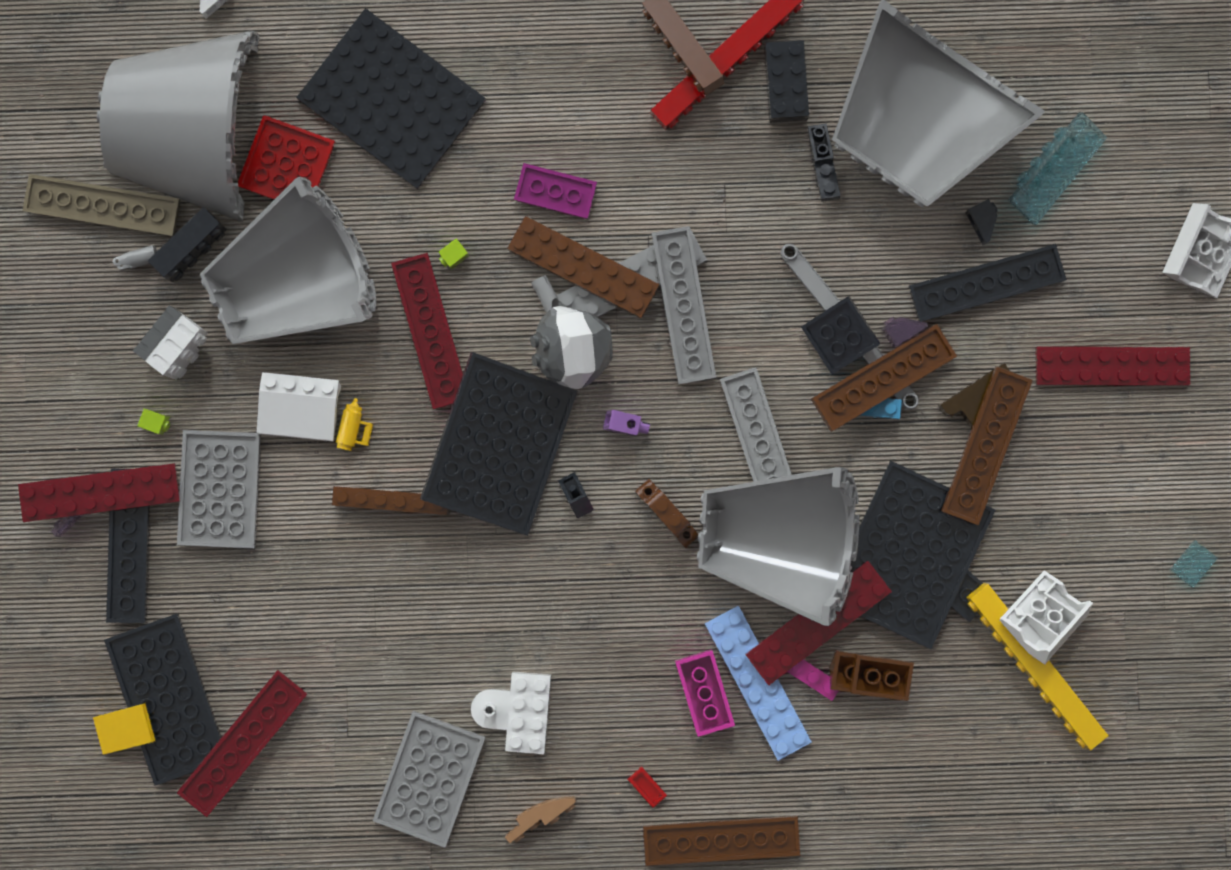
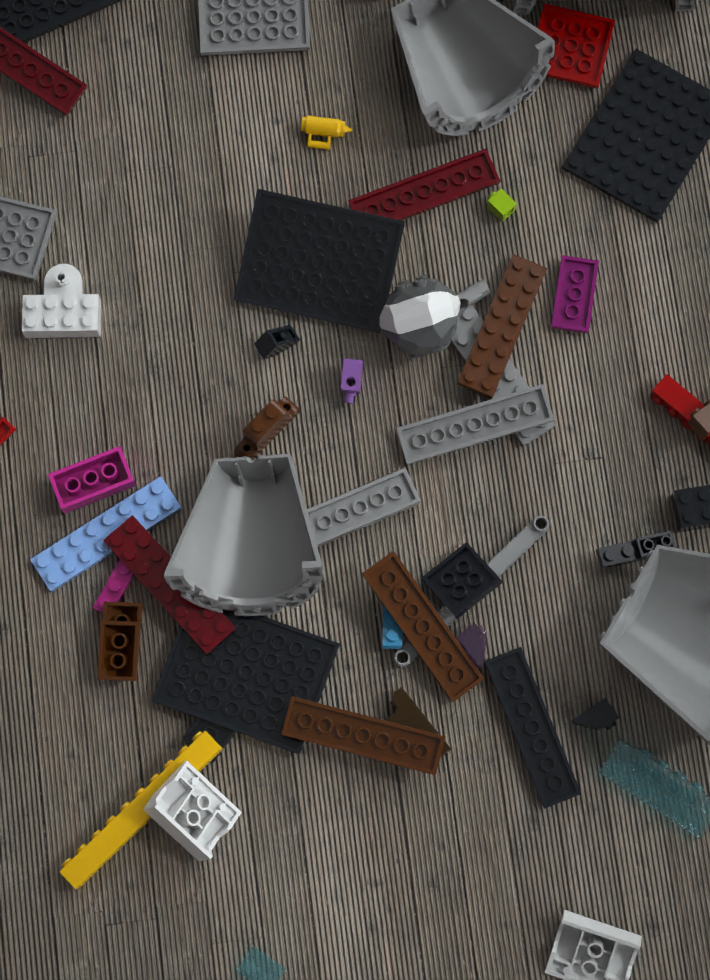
camera: 85 degrees right, 10 degrees down
(297, 406) = (338, 77): white piece -> none
(384, 500) = (255, 160): reddish brown brick -> none
(1113, 366) = (460, 867): dark red plate -> none

